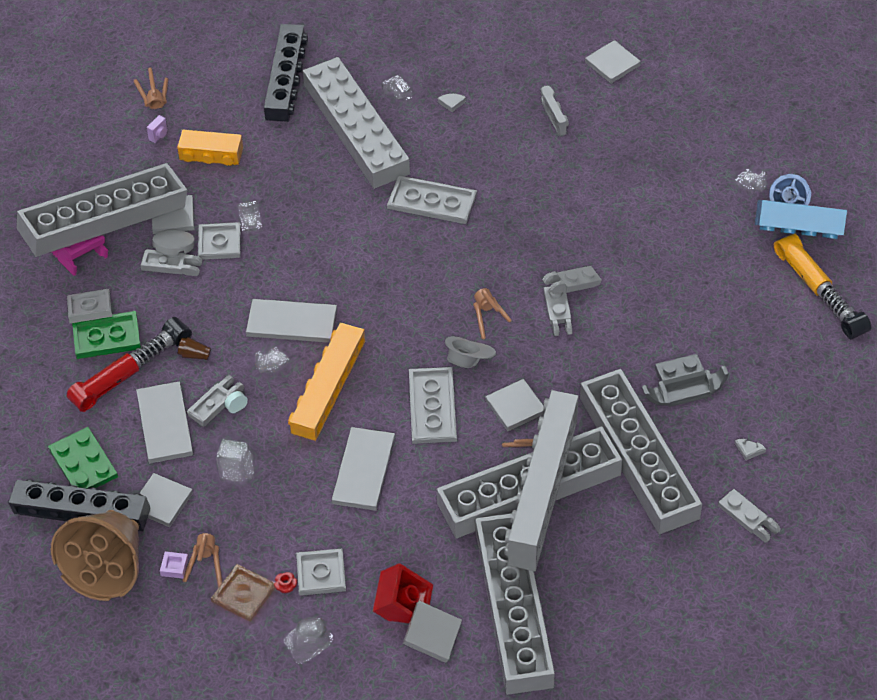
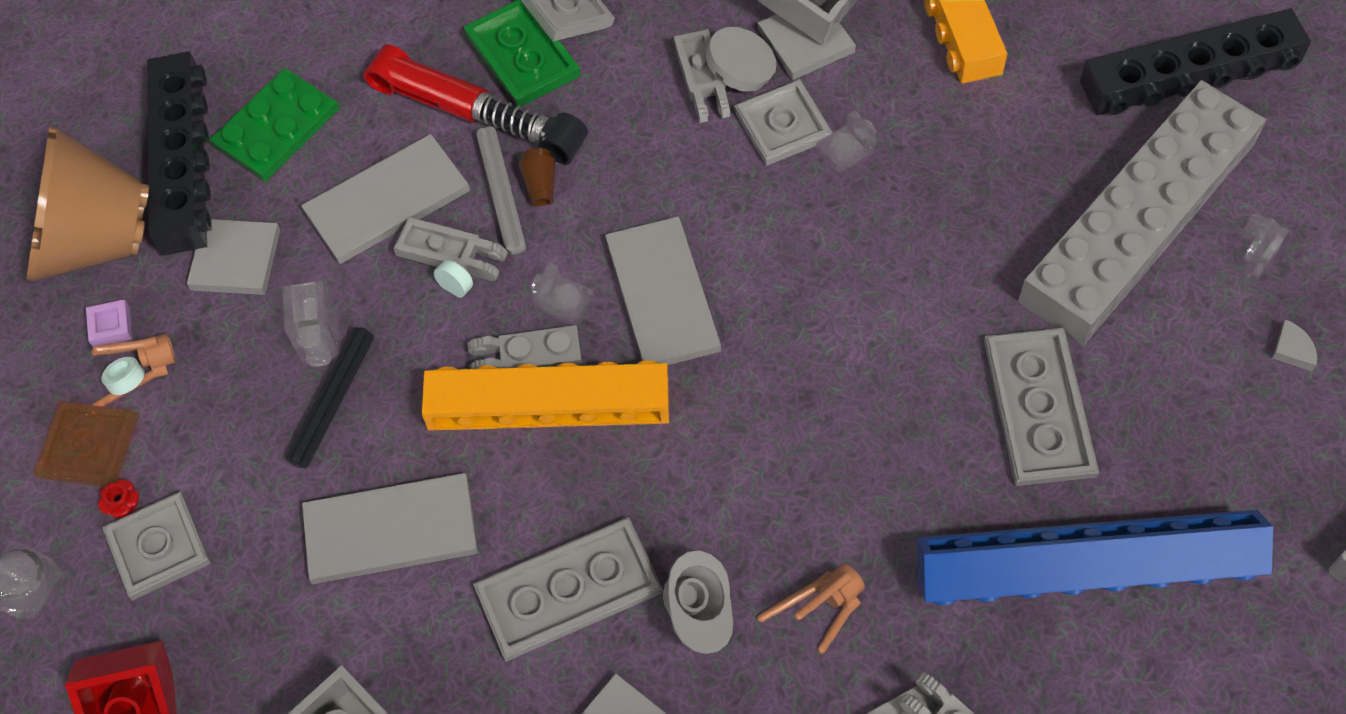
camera: 70 degrees right, 10 degrees up
(189, 369) = (501, 190): none -> light grey axle
(211, 565) = (122, 375): none -> light aqua tile
(280, 478) = (330, 398): none -> black axle
(295, 383) = (537, 348): none -> light grey hinge
(516, 206) = (1094, 556): none -> blue brick

